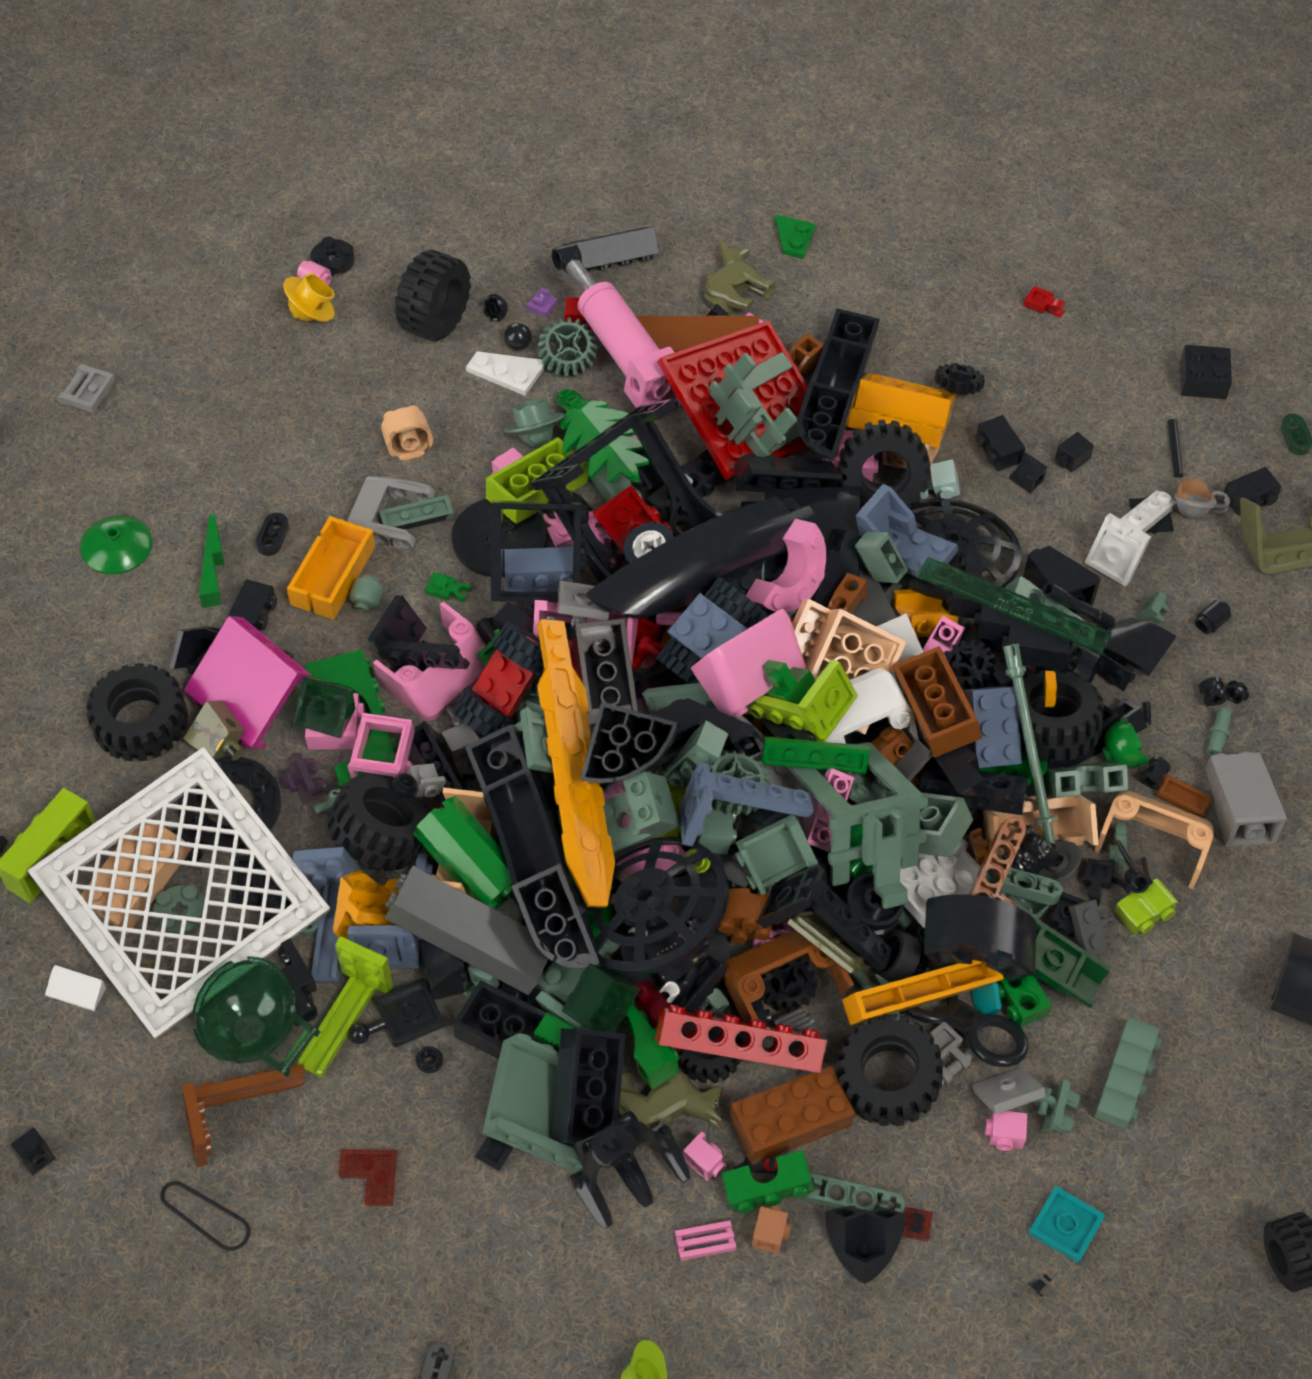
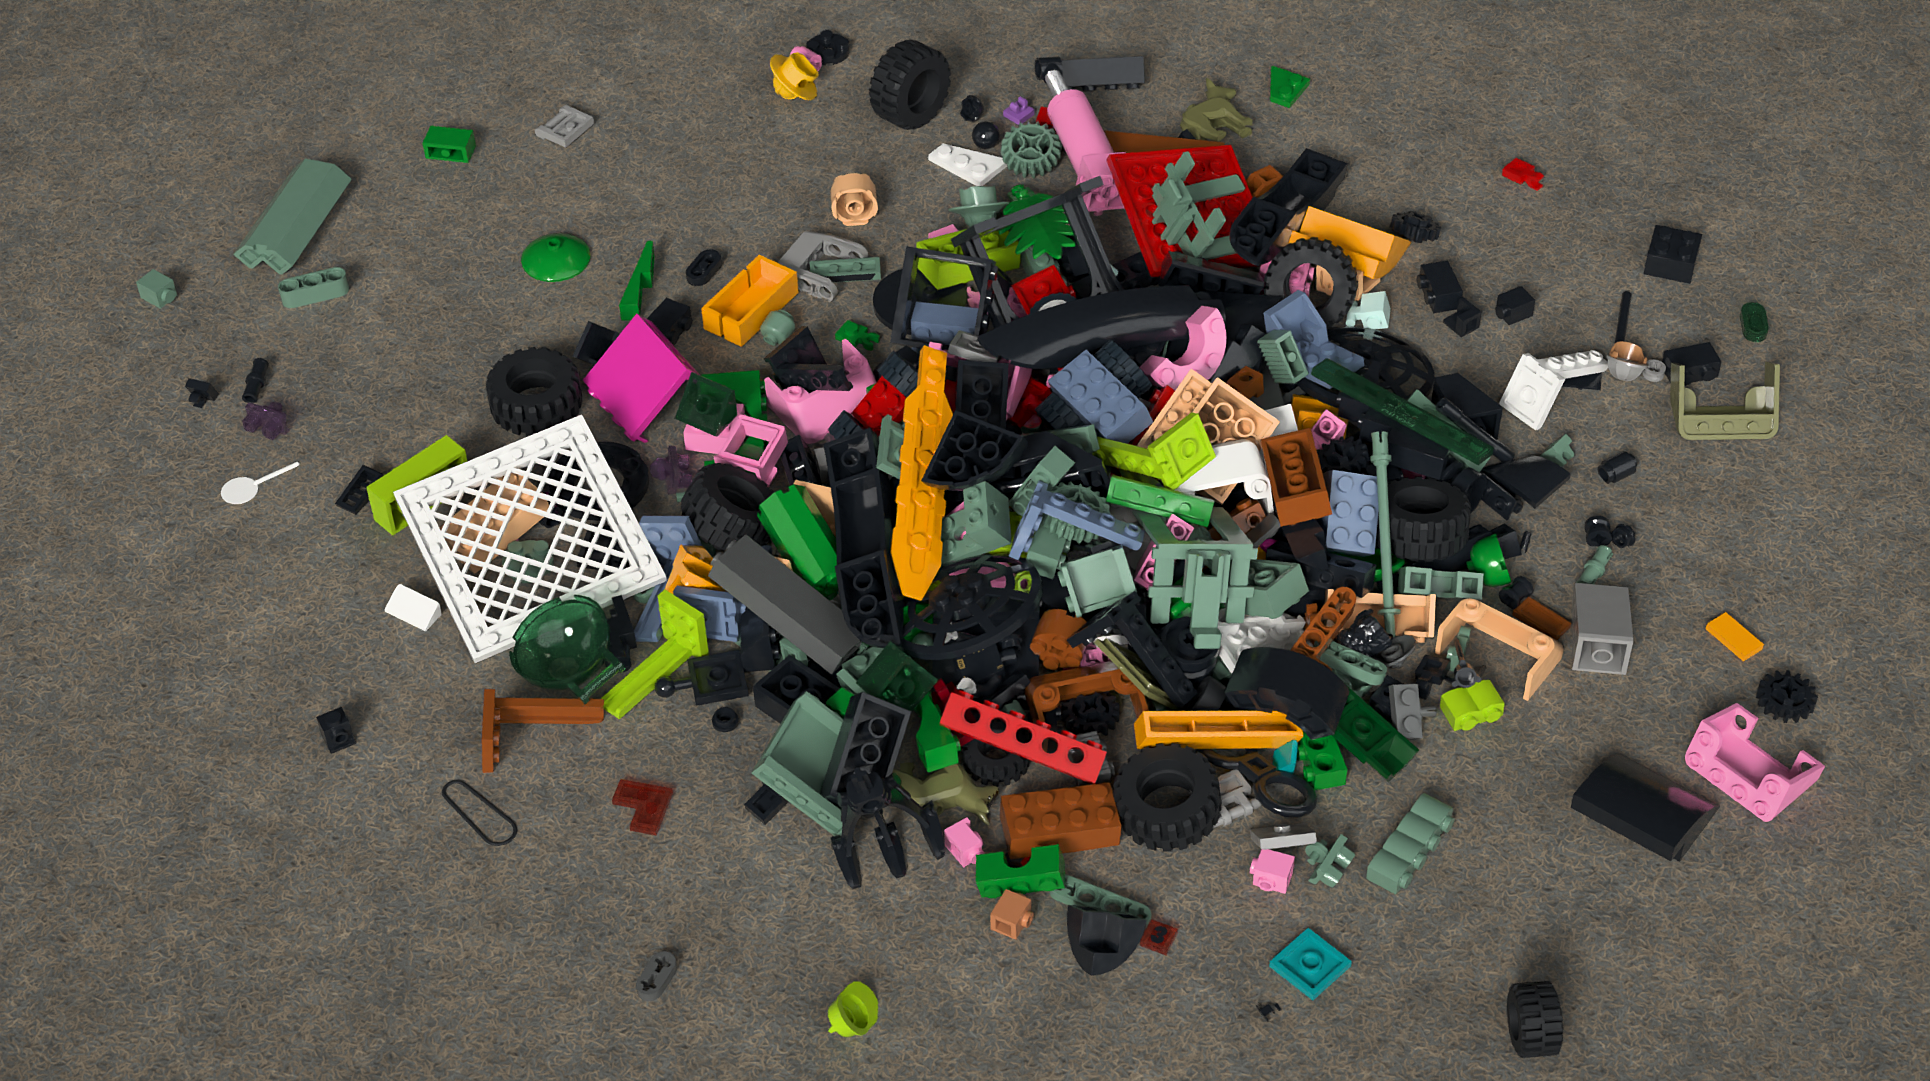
camera: 15 degrees right, 10 degrees down
(216, 731) = (604, 415): olive torso -> none
(404, 785) = (762, 480): black plate -> none
(427, 780) = (782, 478): light grey bracket -> none
(685, 1255) = (946, 909): bright pink tile -> none
(734, 670) = (1117, 409): bright pink windscreen -> none
(788, 684) = (1143, 429): green brick -> none
(1050, 688) = (1417, 488): light orange tile -> none

